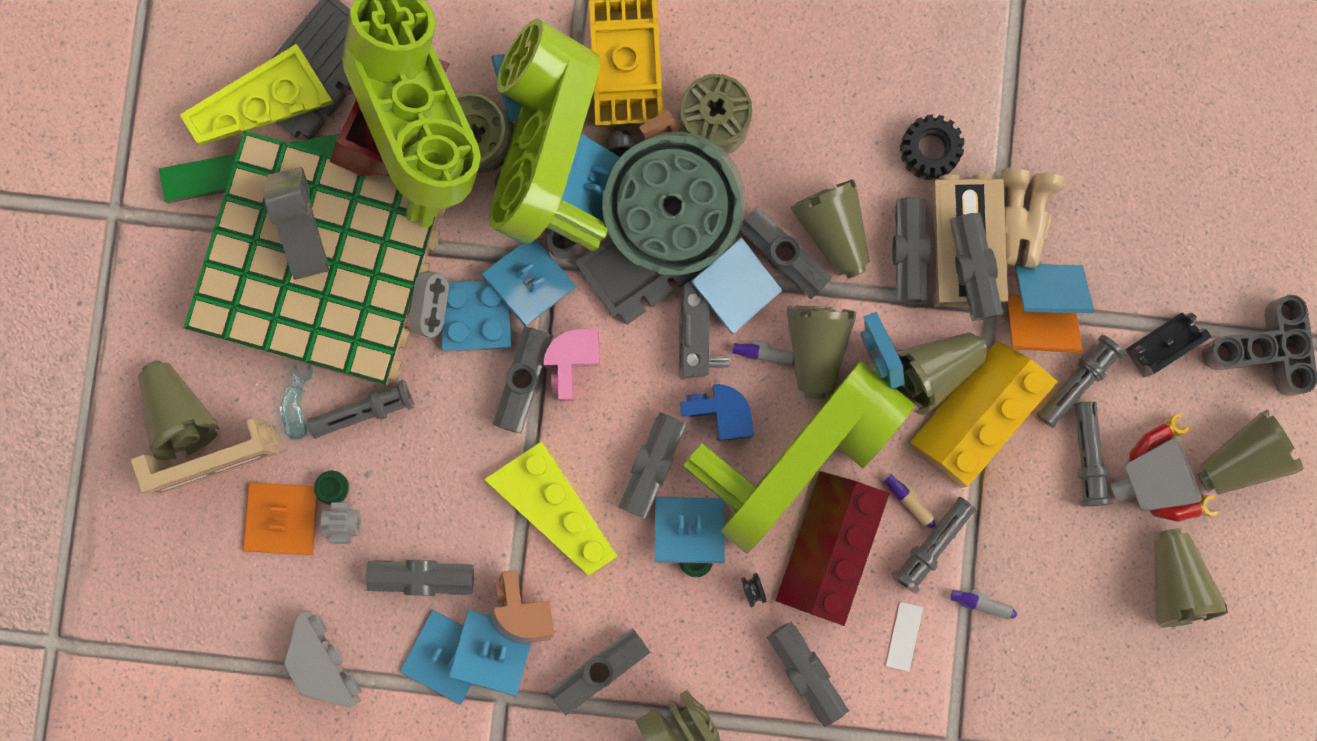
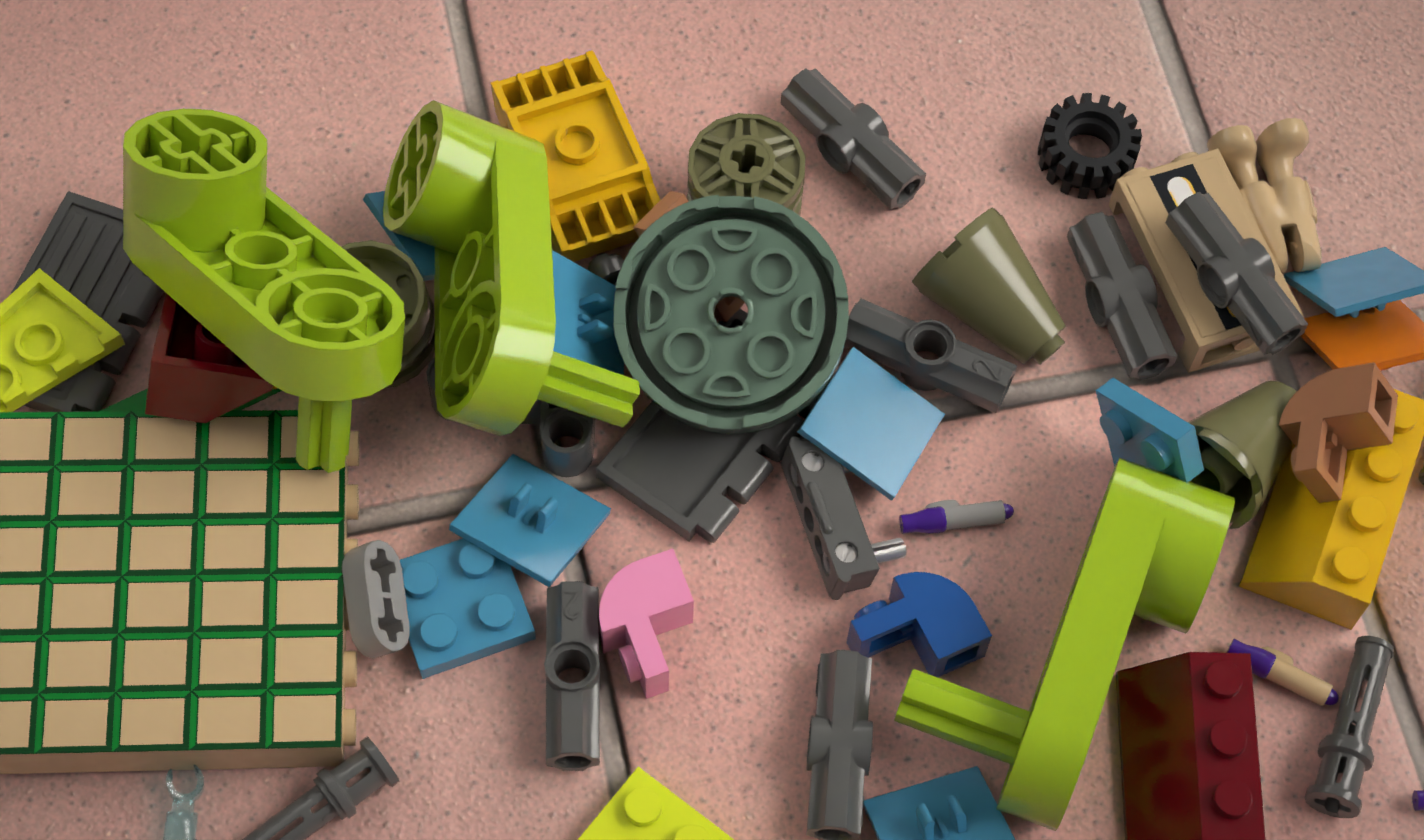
camera: 20 degrees left, 20 degrees down
(290, 209) = (102, 489): dark grey beam -> none
(792, 98) = (853, 138): none -> dark grey piece
(818, 346) = (1038, 469): olive cone -> none
(992, 373) = (1333, 415): none -> nougat brick

